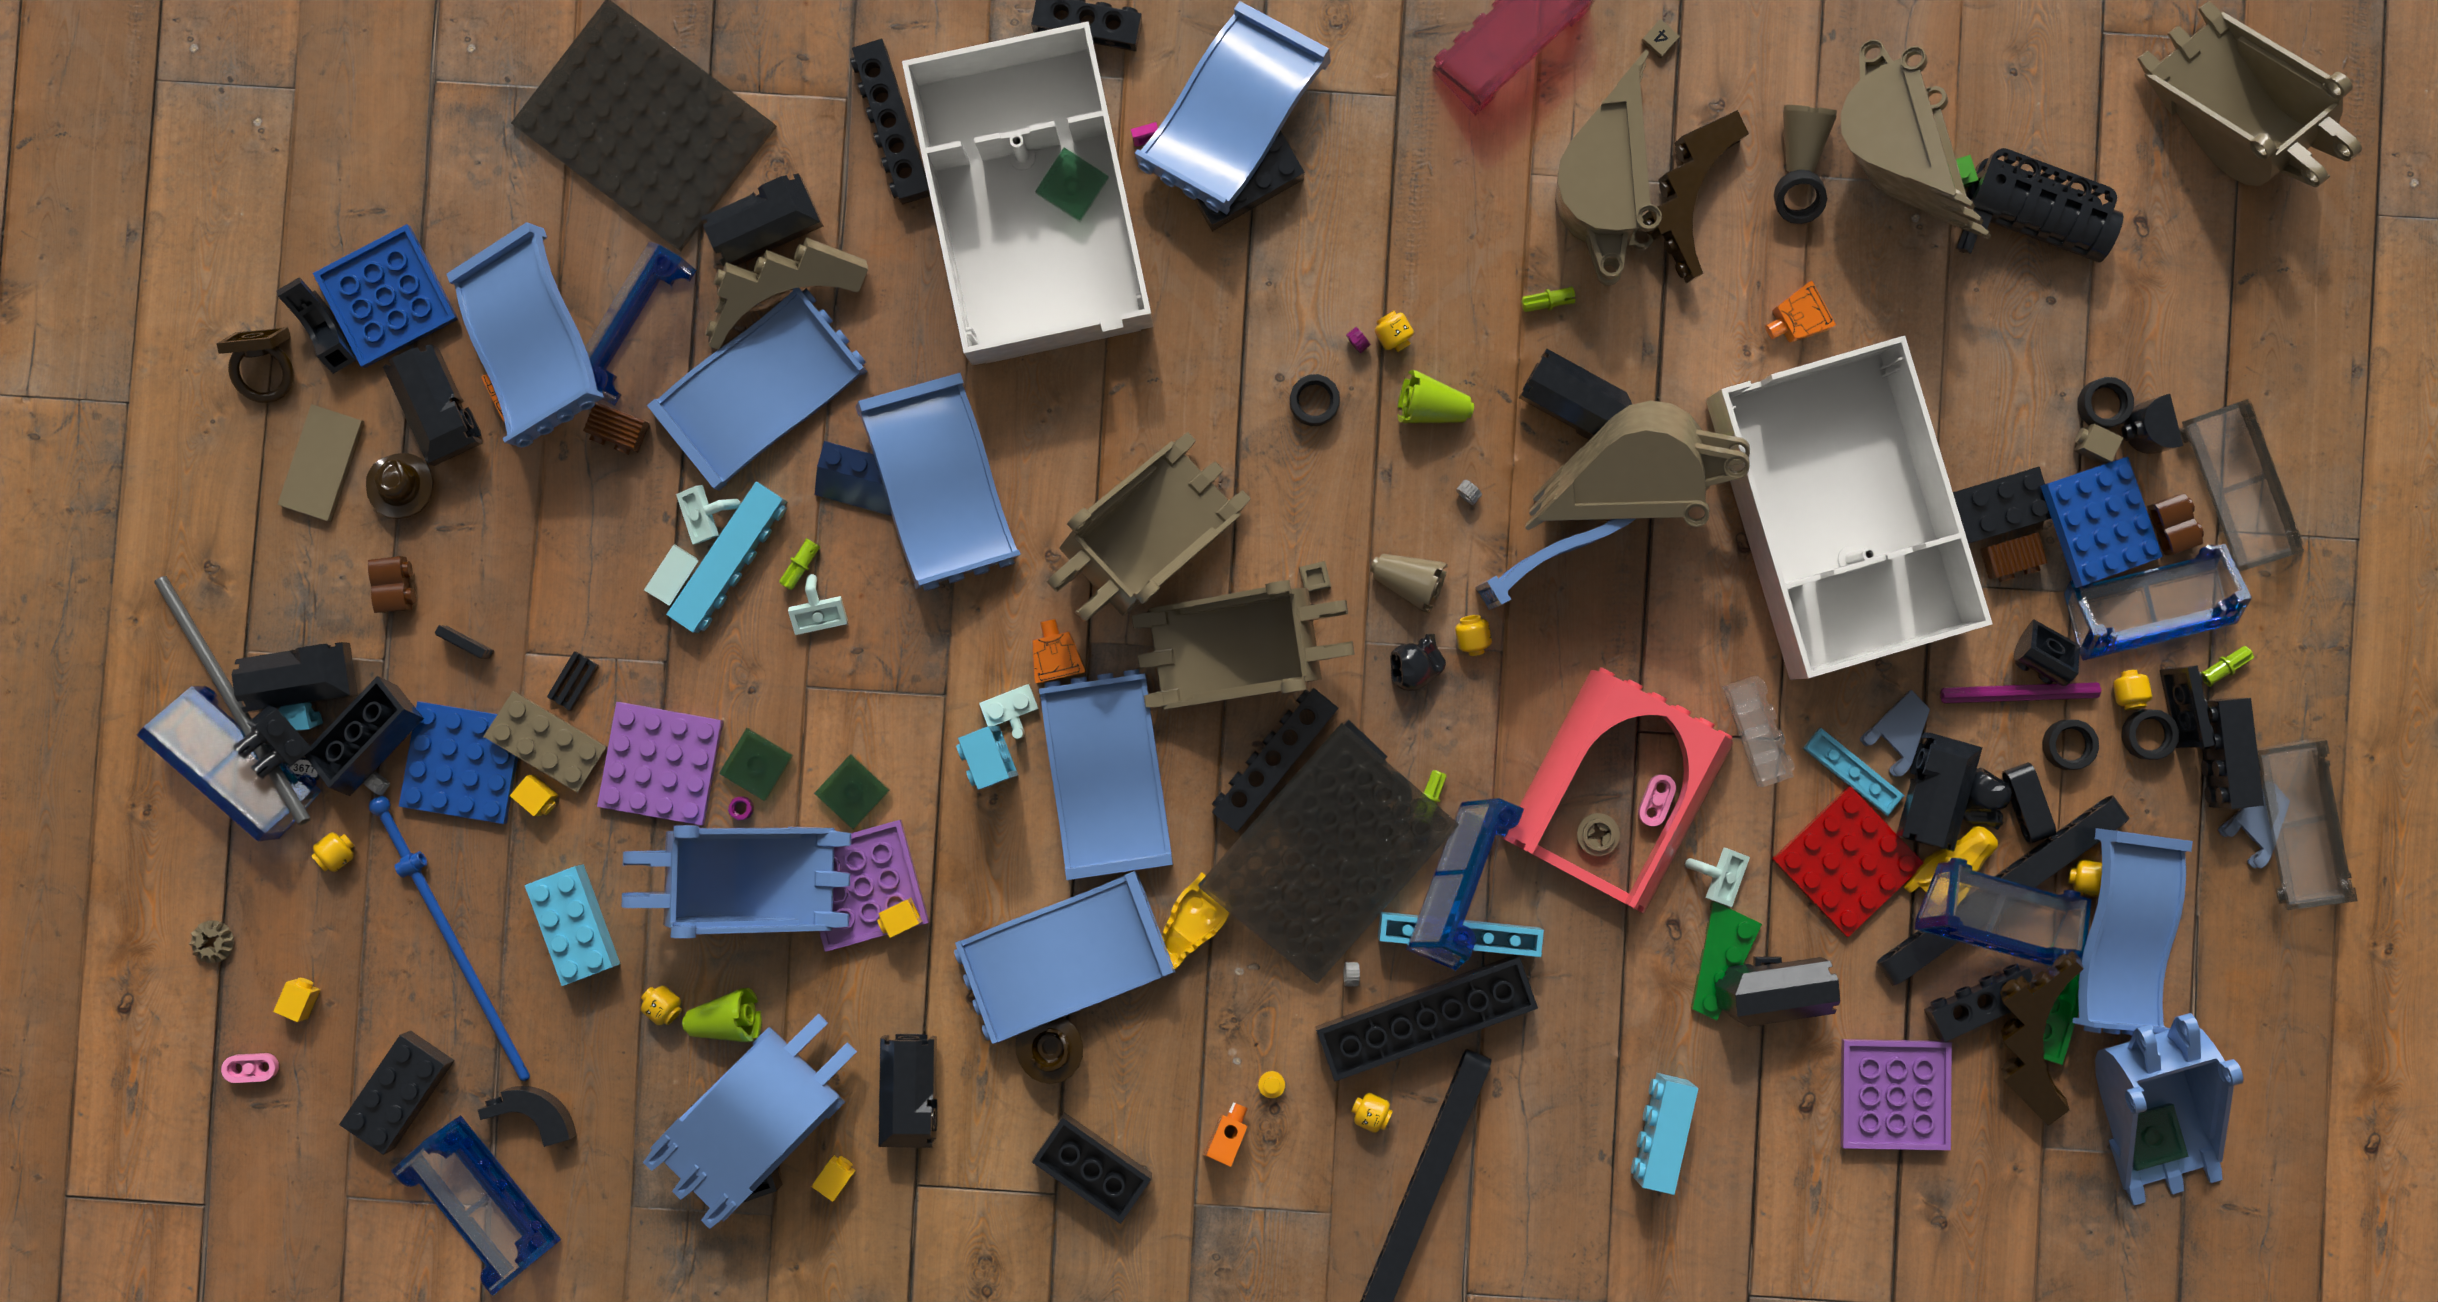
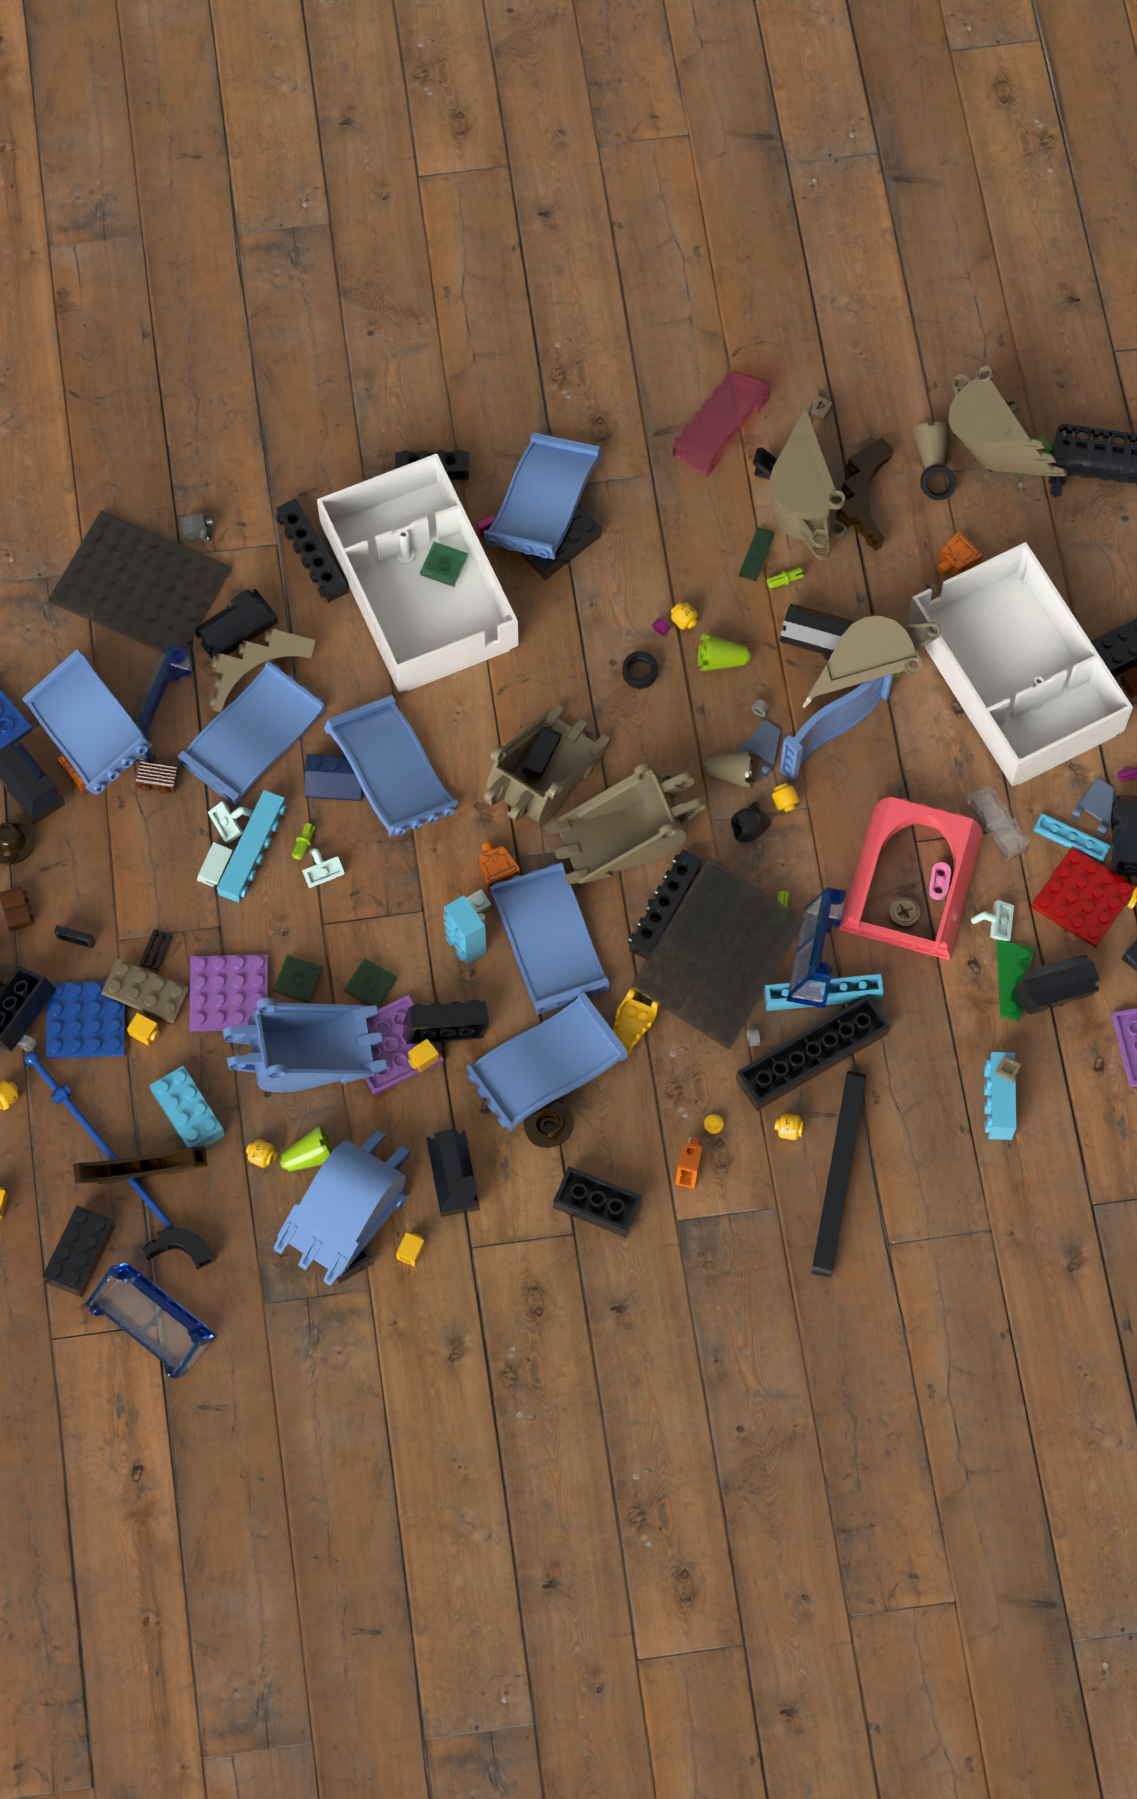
camera: 15 degrees left, 20 degrees down
(498, 995) = (140, 1167): none -> dark brown arch
(737, 52) = (197, 526): none -> dark grey piece
(938, 880) = (446, 1022): none -> black brick
(1150, 504) = (541, 753): none -> black beam
(1461, 547) = (764, 743): none -> sand blue flag
(1517, 252) = (756, 554): none -> clear green tile
(1563, 118) = (764, 463): none -> black slope
(1684, 1112) = (1008, 1068): none -> dark tan tile

